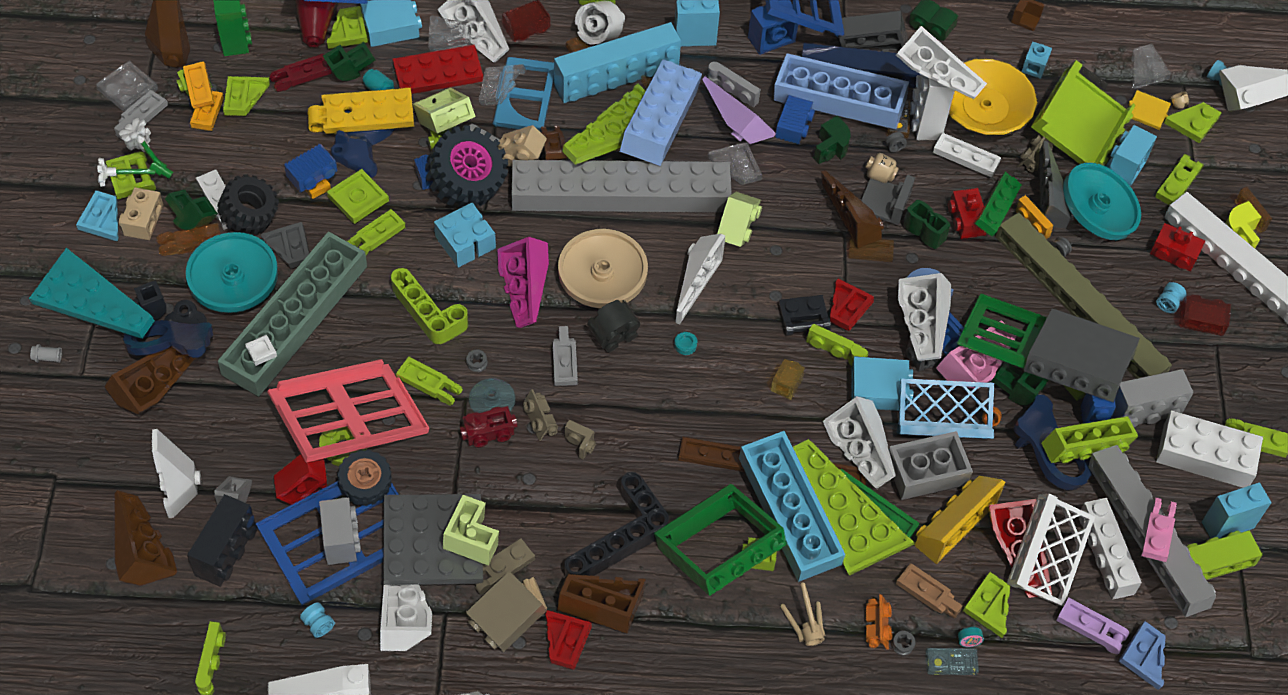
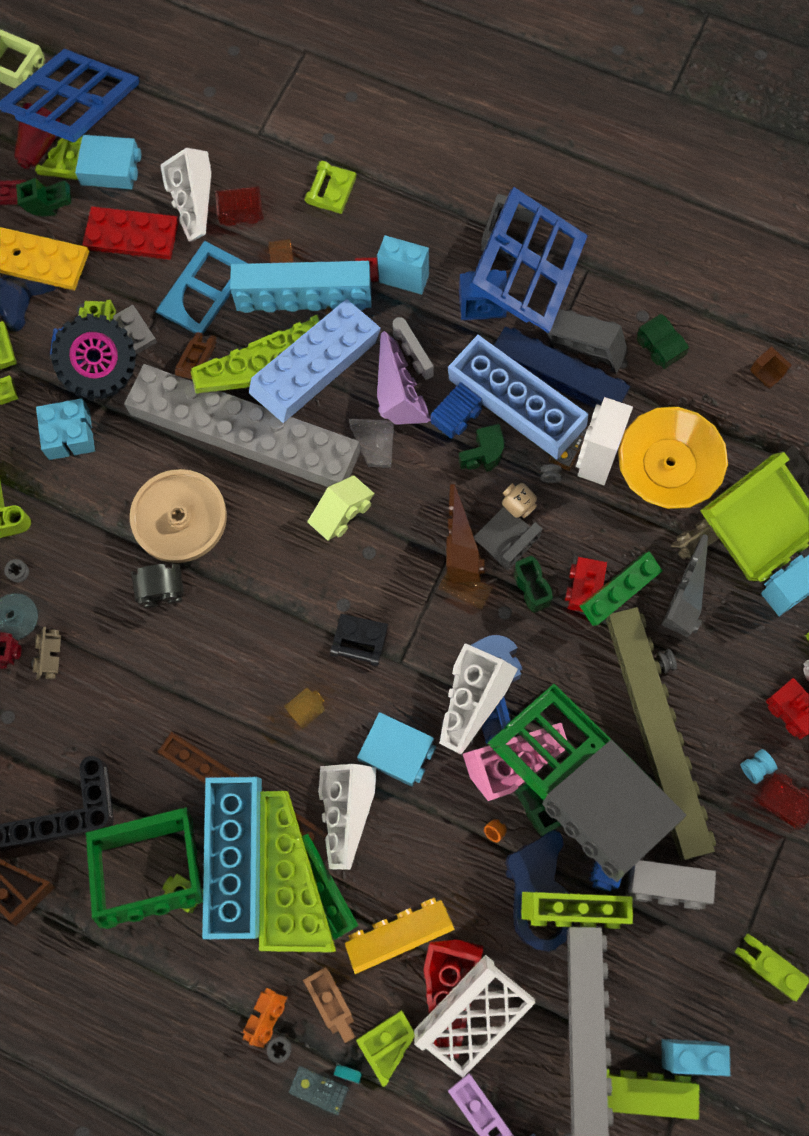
camera: 30 degrees right, 15 degrees up
(376, 80) = (64, 228): teal brick -> none
(448, 34) = (155, 196): clear wing -> none
(448, 110) = (113, 281): yellowish green window -> none
(498, 83) = (179, 268): clear wing -> none
(522, 144) = (159, 350): tan brick -> none
(524, 272) = (107, 487): dark pink wedge -> none
(564, 359) = (98, 600): light grey hinge -> none
(580, 436) = (71, 693): dark tan bracket -> none
(599, 22) = (305, 233): white brick -> none
(685, 343) = (226, 626): teal tile -> none
(702, 263) = (277, 548): white wedge -> none
(813, 630) = (191, 999): tan plant -> none
(834, 343) = (374, 690): lime hinge -> none
(849, 305) = (408, 646): red wing -> none
(930, 428) = (431, 826): dark azure fence -> none
(930, 465) = (396, 865): light grey brick -> none
(935, 61) = (603, 418): white wedge -> none
(967, 155) = (619, 515): white plate -> none
(1035, 216) = (651, 607): light orange plate -> none
(1036, 60) = (752, 427): medium azure brick -> none
(1102, 201) = (736, 626): teal dish -> none
(1110, 550) = (540, 1037): white brick -> none
(1159, 532) = (586, 1060): bright pink hinge -> none
(1209, 449) = (709, 964): white brick -> none

